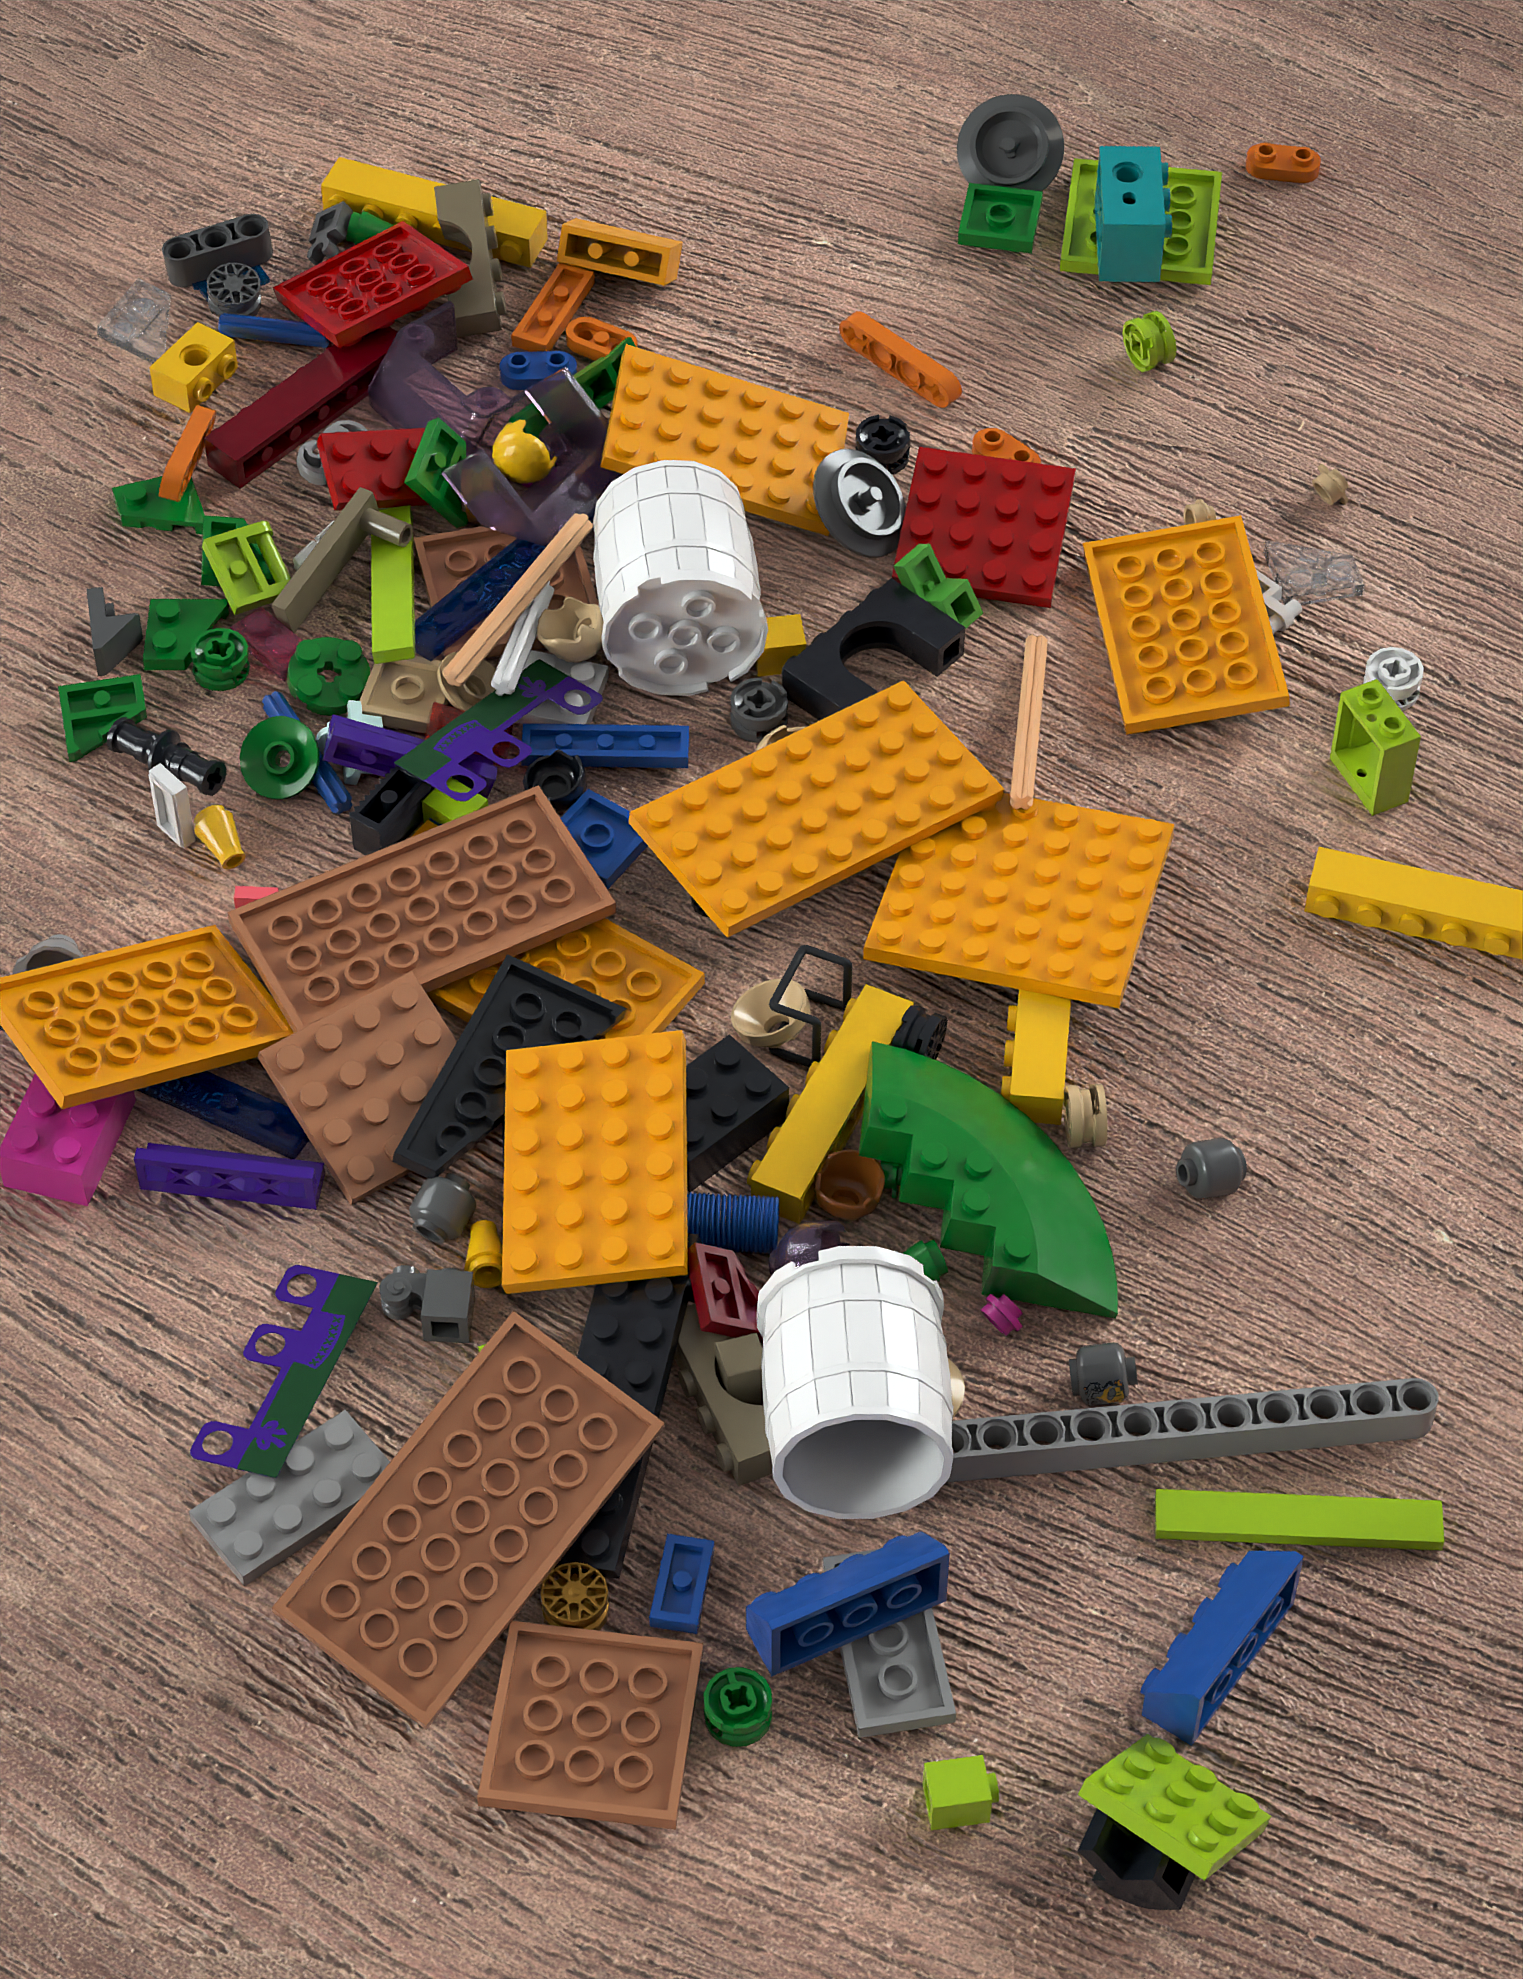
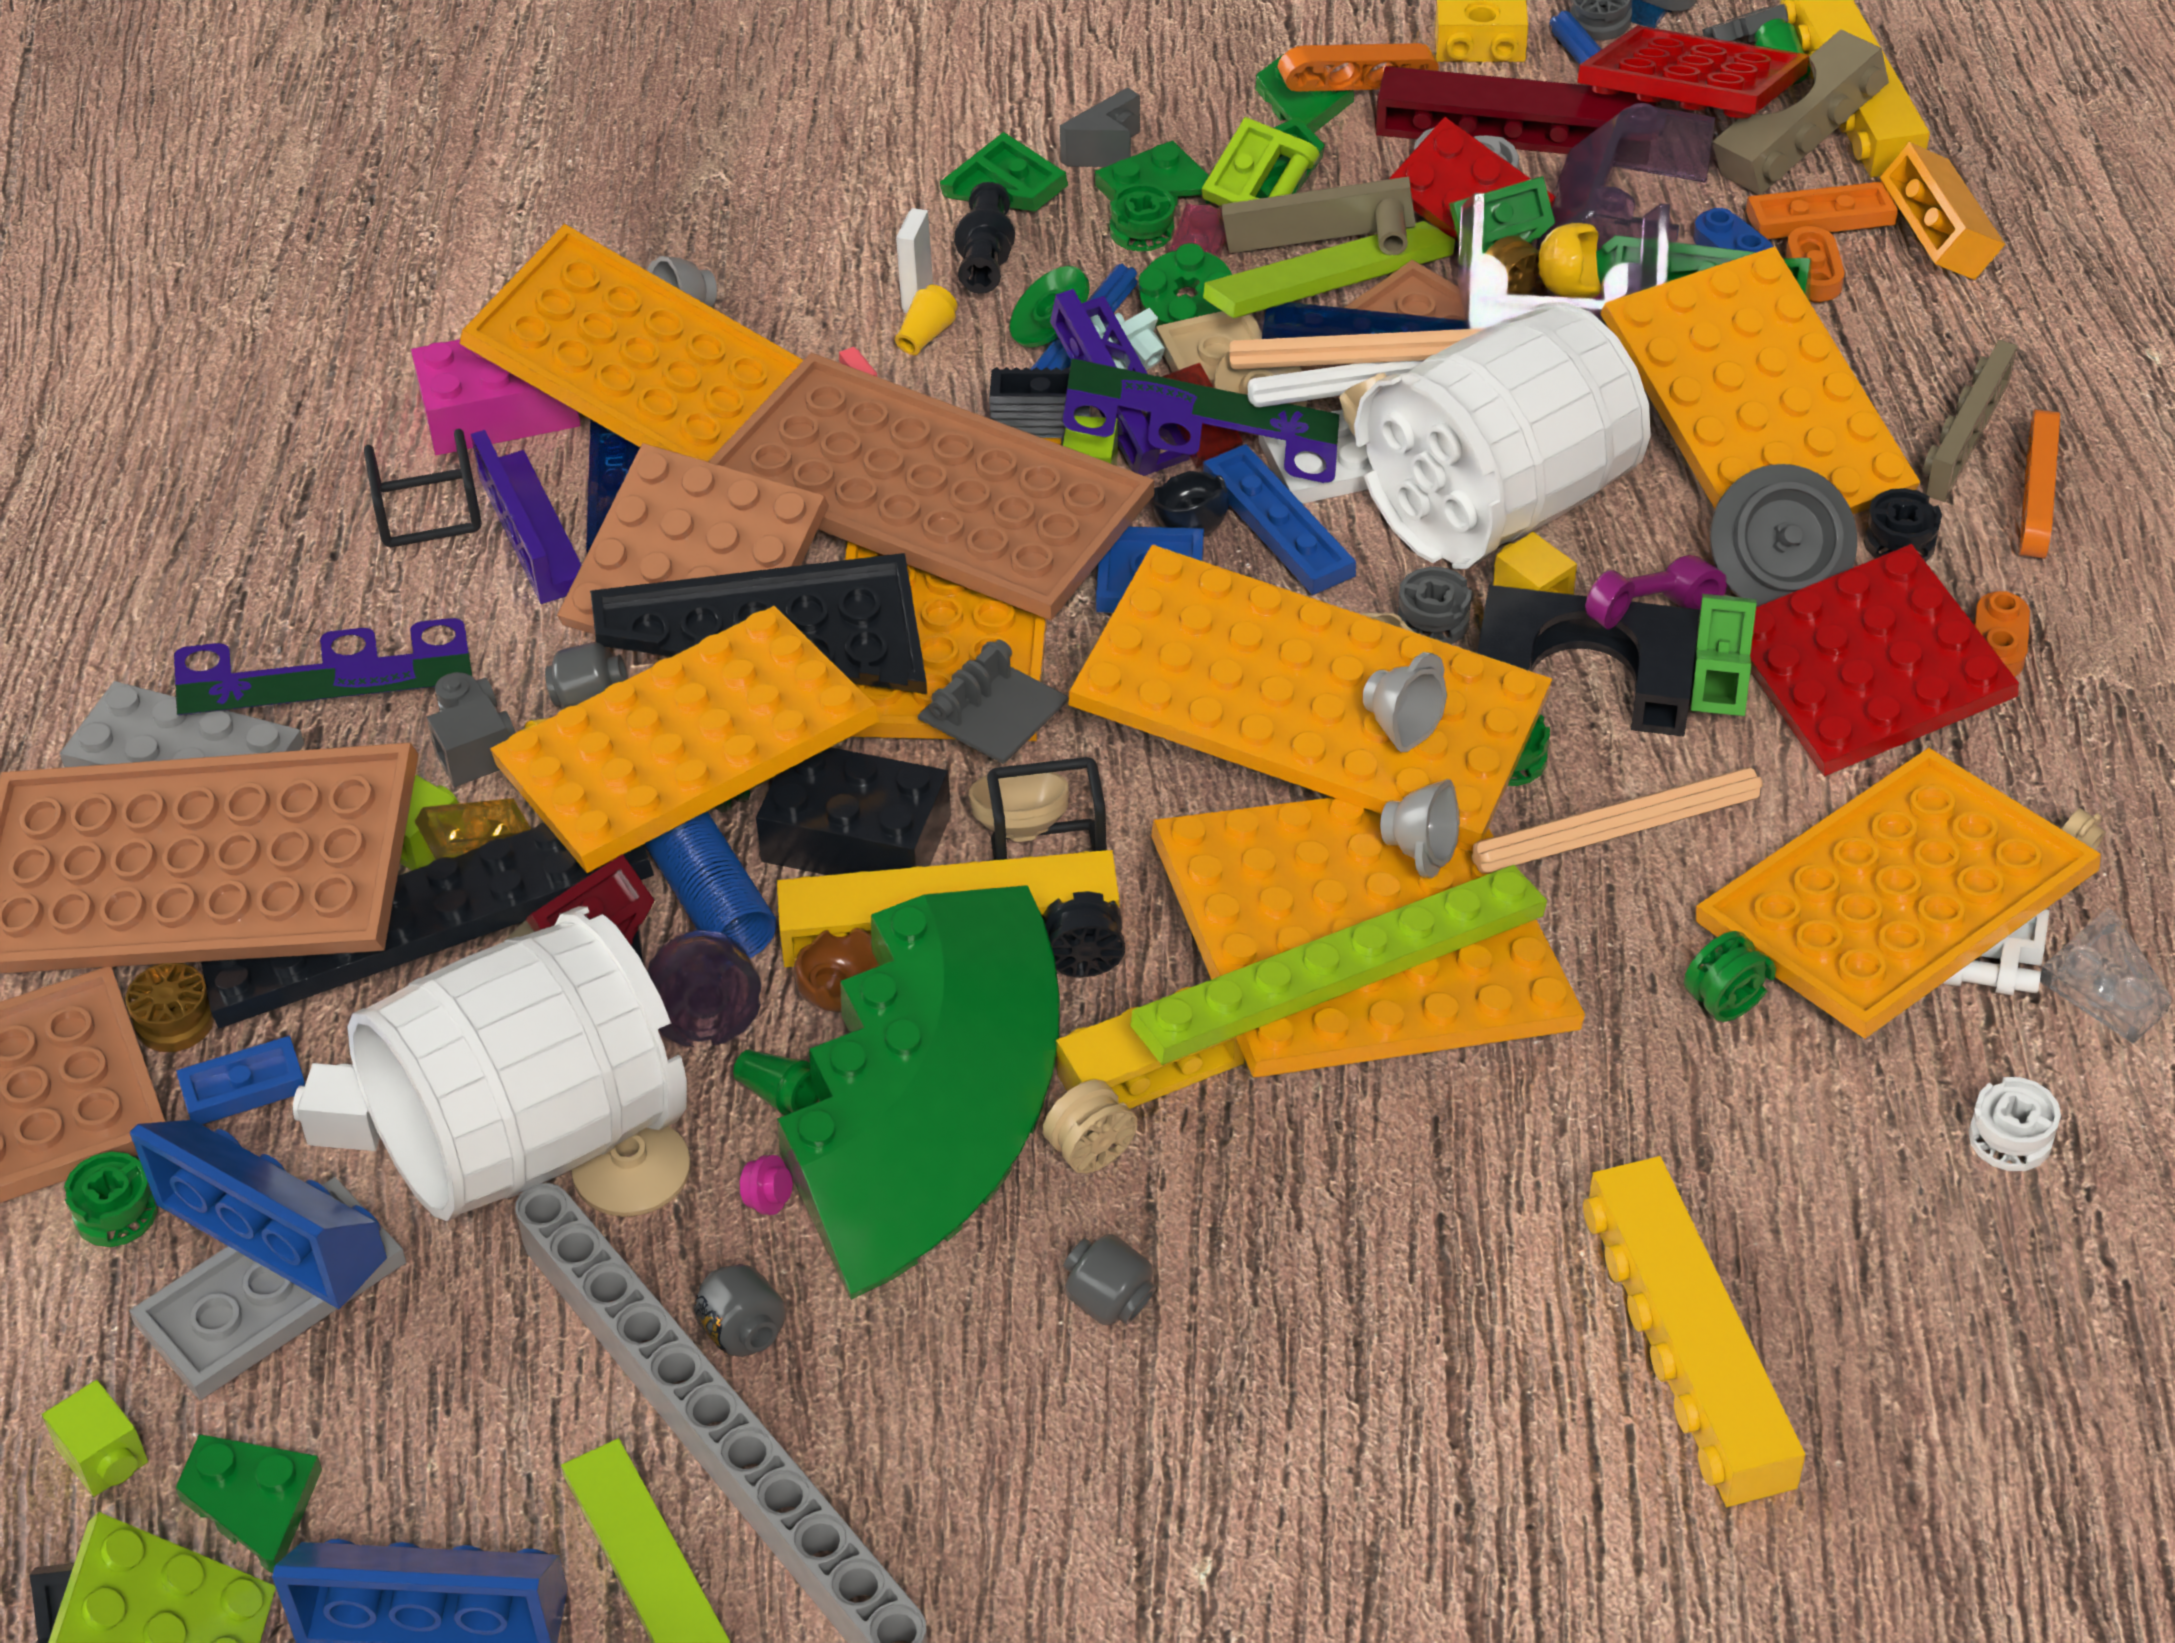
camera: 60 degrees right, 5 degrees down
(168, 1268) = (377, 488): none -> black piece
(559, 1325) = (466, 826): none -> clear yellow plate
(675, 983) = (992, 704): none -> dark grey hinge
(756, 1528) = (334, 1109): none -> white brick
(819, 356) = (1974, 412): none -> dark tan plate
(858, 607) = (1681, 583): none -> magenta piece
(891, 757) = (1408, 700): none -> light grey piece
(985, 810) = (1424, 826): none -> light grey piece
(1055, 1722) = (250, 1492): none -> green wing
(1072, 914) = (1336, 964): none -> lime plate
(1196, 739) = (1731, 977): none -> green wheel
(1367, 716) = (1857, 1135): lime window -> none

